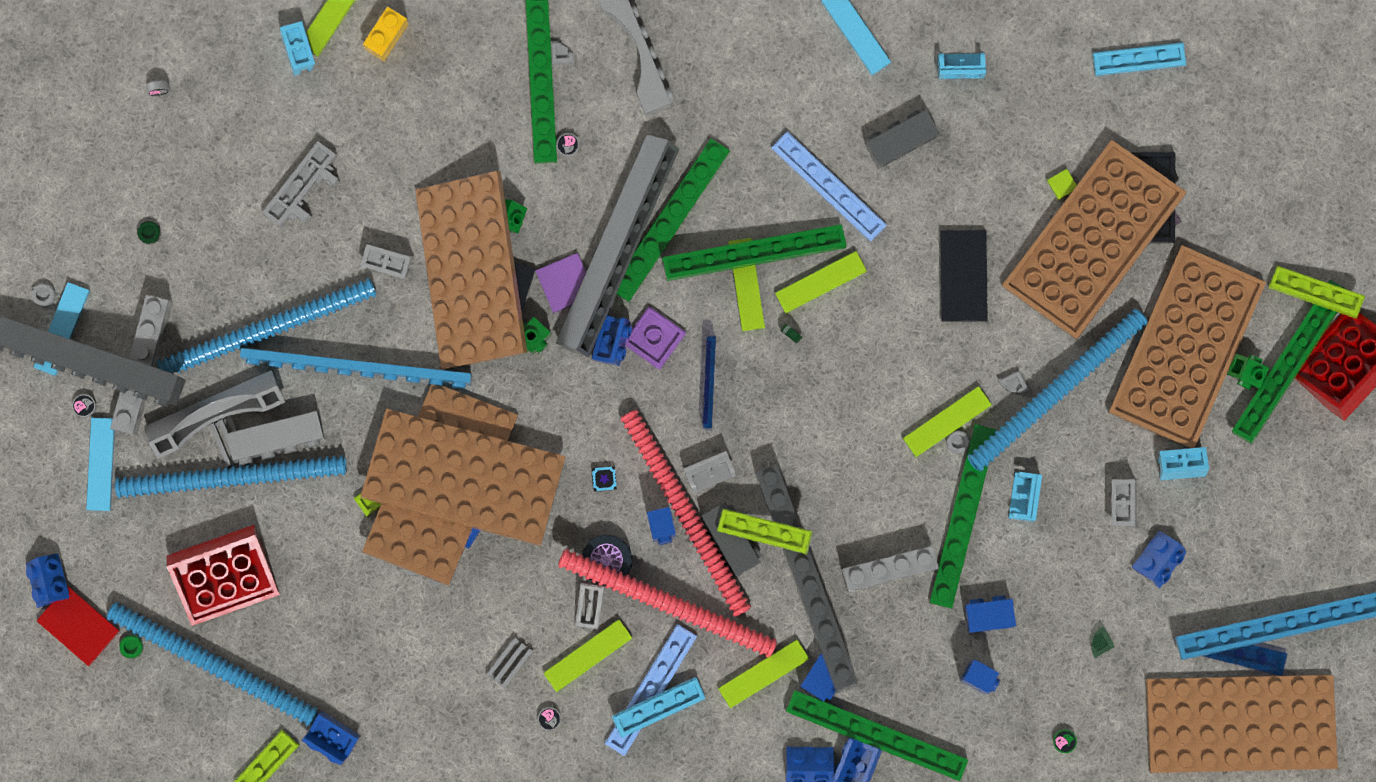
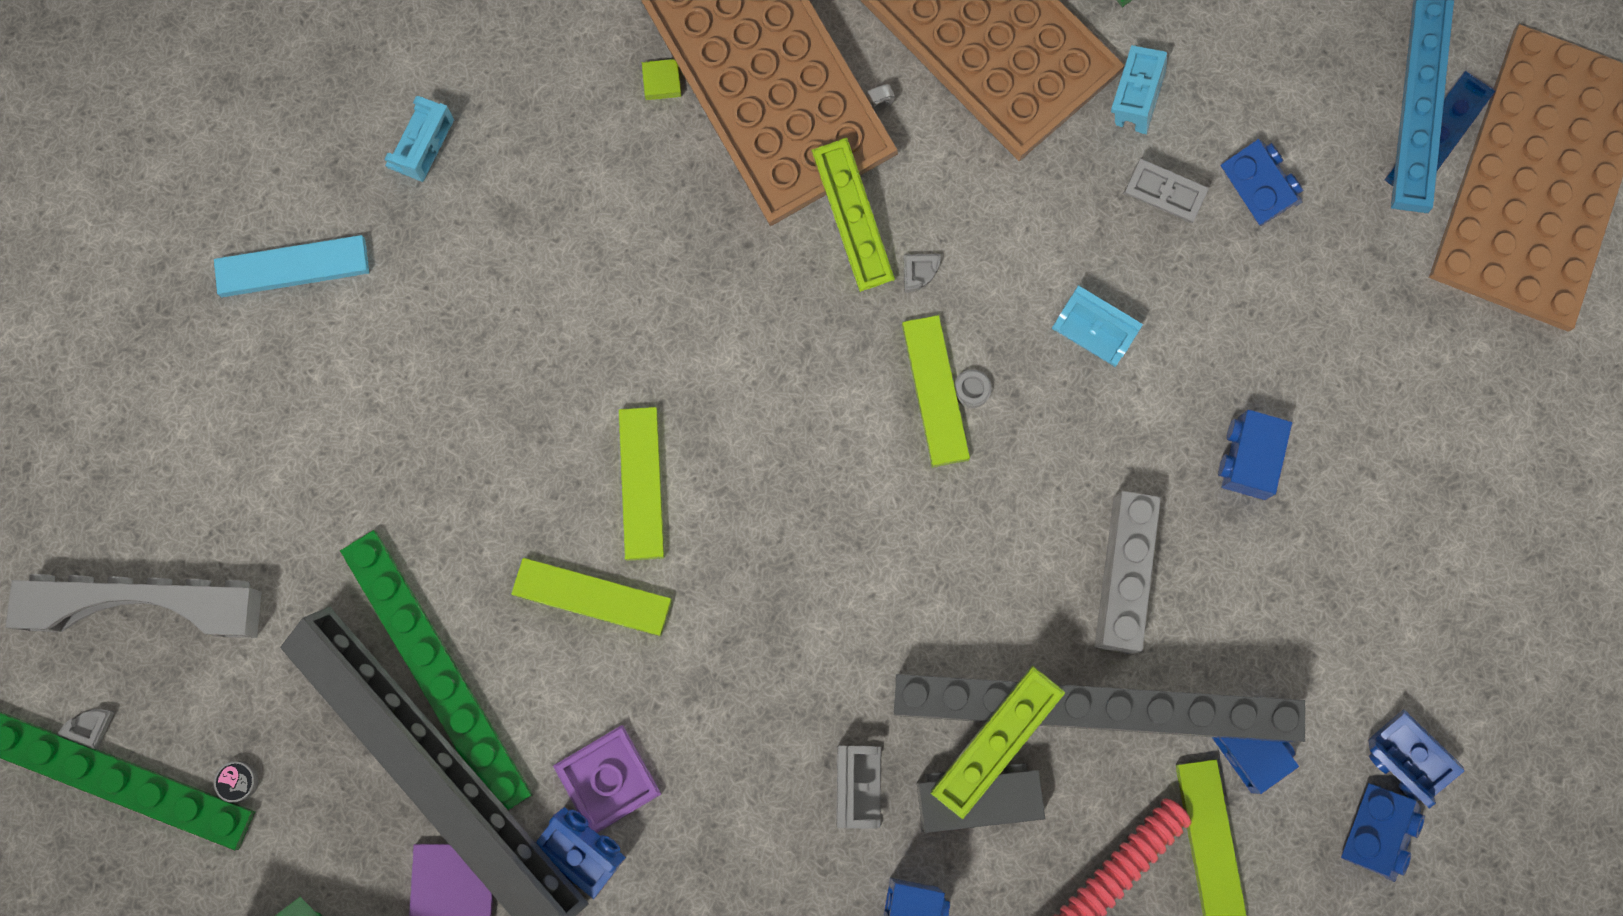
camera: 70 degrees left, 5 degrees down
(685, 512) = (907, 854): coral piece -> none
(709, 383) = (718, 724): clear blue tile -> none
(754, 252) = (546, 567): green plate -> none
(792, 334) = (698, 562): dark green tile -> none
(828, 186) = (500, 407): light blue tile -> none
(877, 735) = (1374, 708): green plate -> none
(901, 138) = (482, 268): dark grey brick -> none
(960, 525) = (1088, 430): green plate -> none
(963, 275) = (729, 272): black tile -> none
(980, 677) = (1352, 509): blue brick -> none
(1027, 330) = (852, 214): none -> lime tile
(1057, 390) = (961, 214): dark azure piece -> none
(1064, 741) = (1482, 430): tile -> none
(1101, 643) = (1354, 315): clear green tile -> none
(1107, 315) = (880, 97): none -> light grey tile

